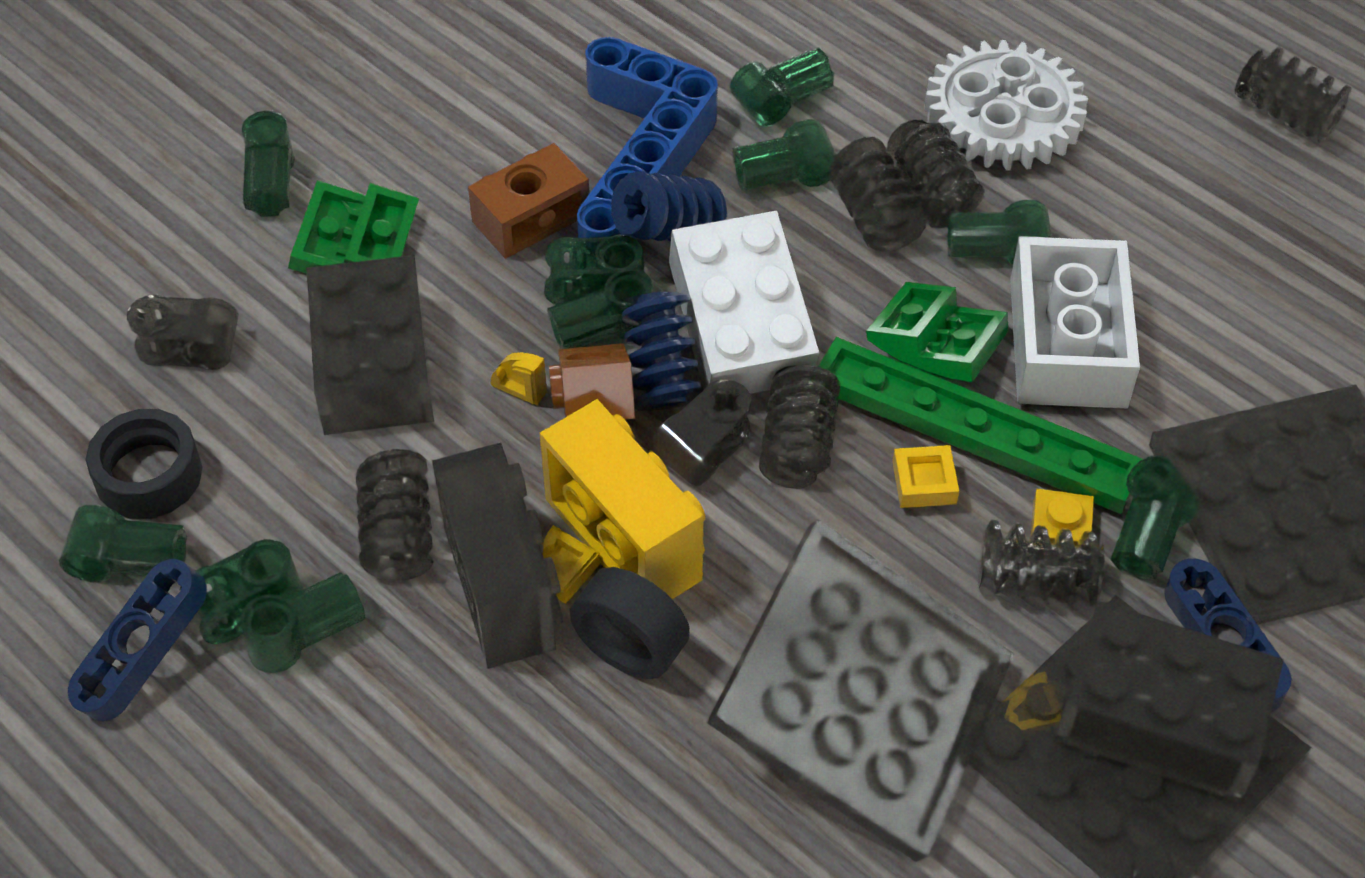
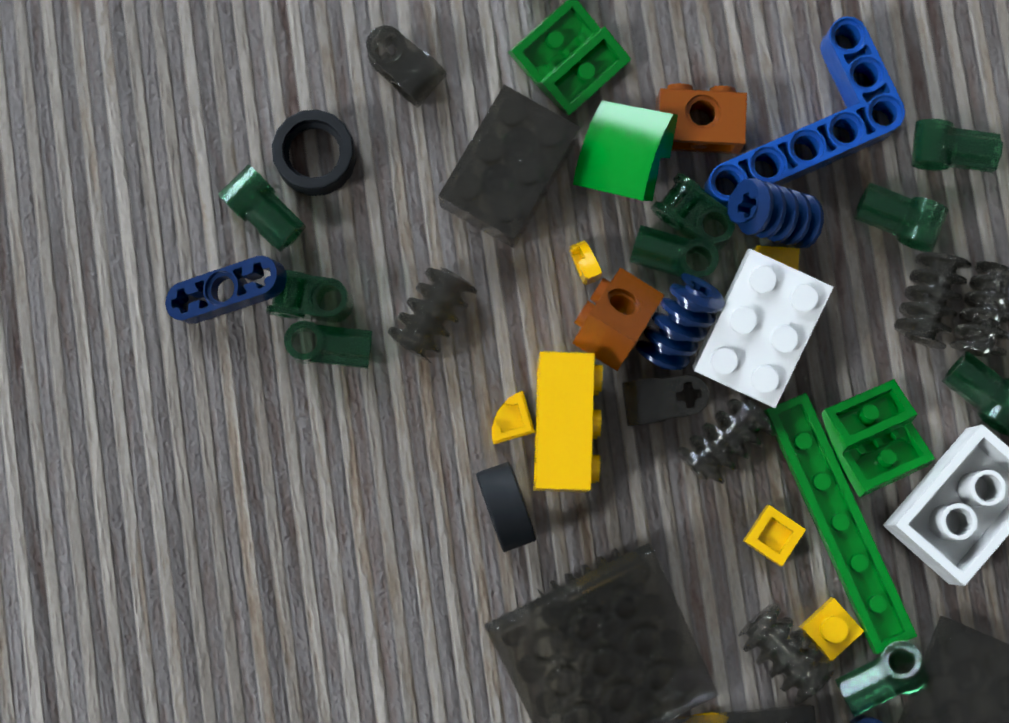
camera: 35 degrees right, 30 degrees up
(477, 256) = (625, 150): none -> green slope
(498, 554) = (465, 397): clear smoke brick -> none

